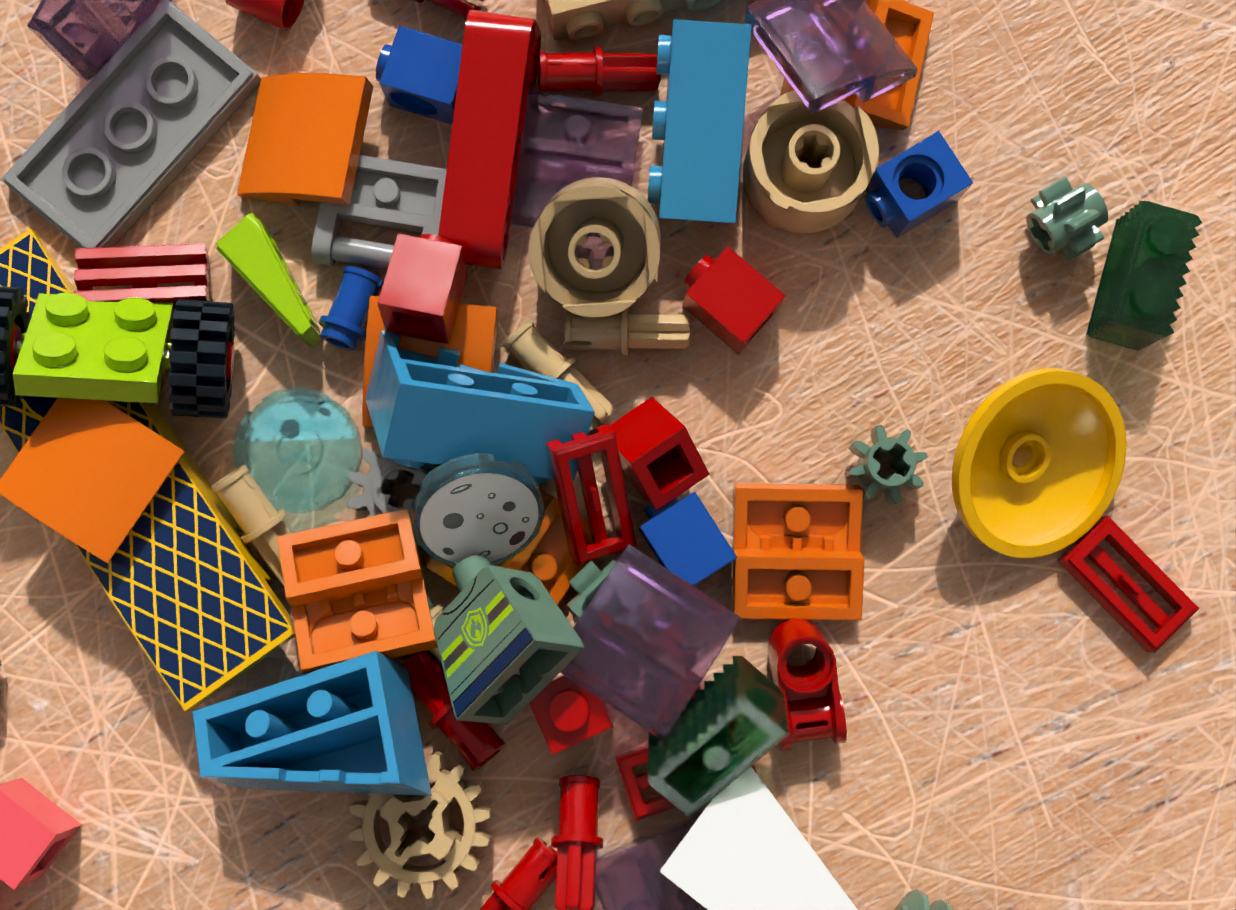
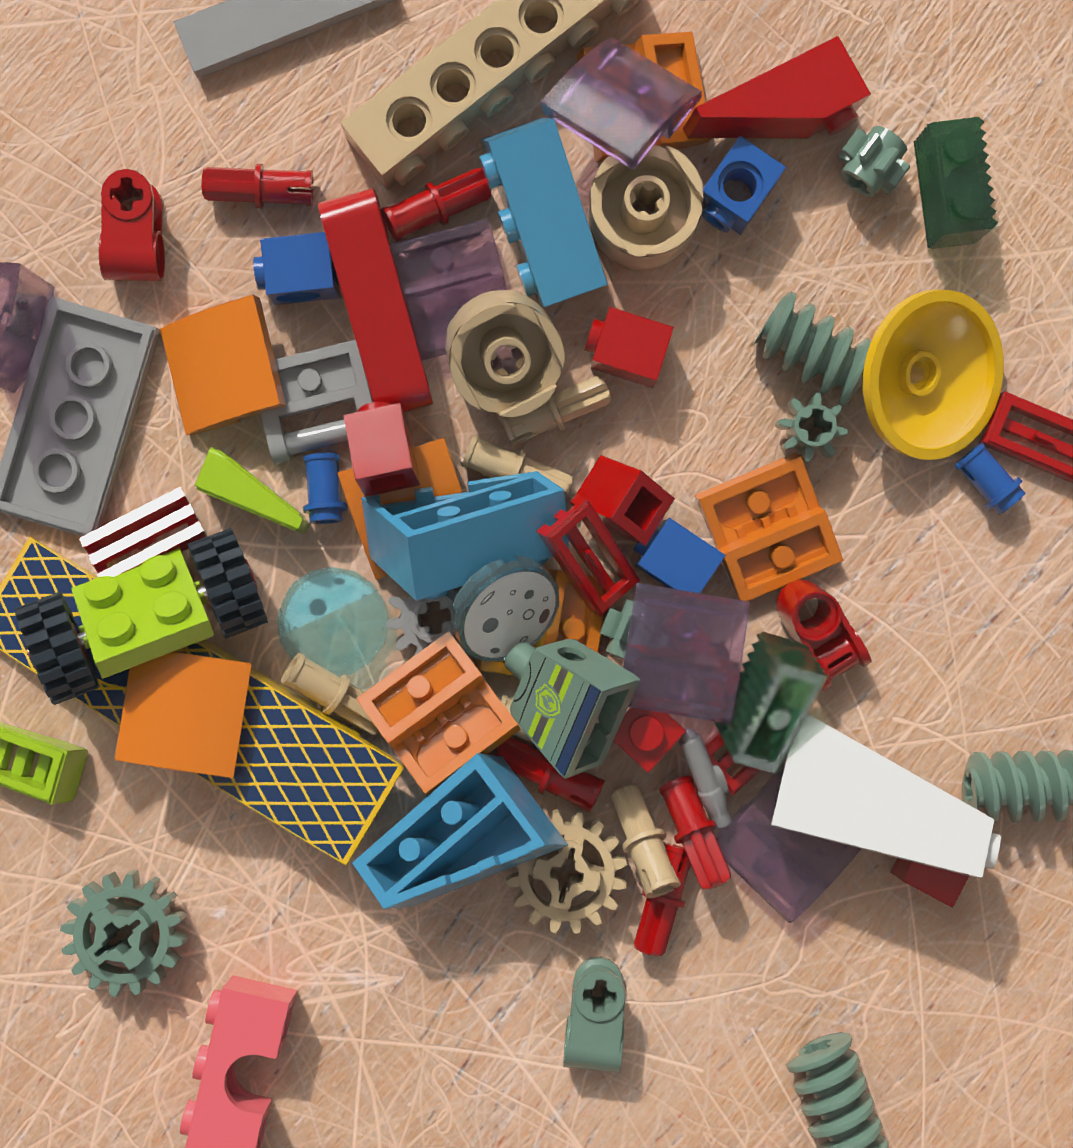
camera: 25 degrees left, 5 degrees up
(517, 830) = (644, 842): none -> tan axle
(615, 788) = (708, 777): none -> light grey piece
(924, 382) = (815, 347): none -> sand green piece
(1002, 119) = (789, 101): none -> red slope
(1054, 602) = (990, 479): none -> blue pin

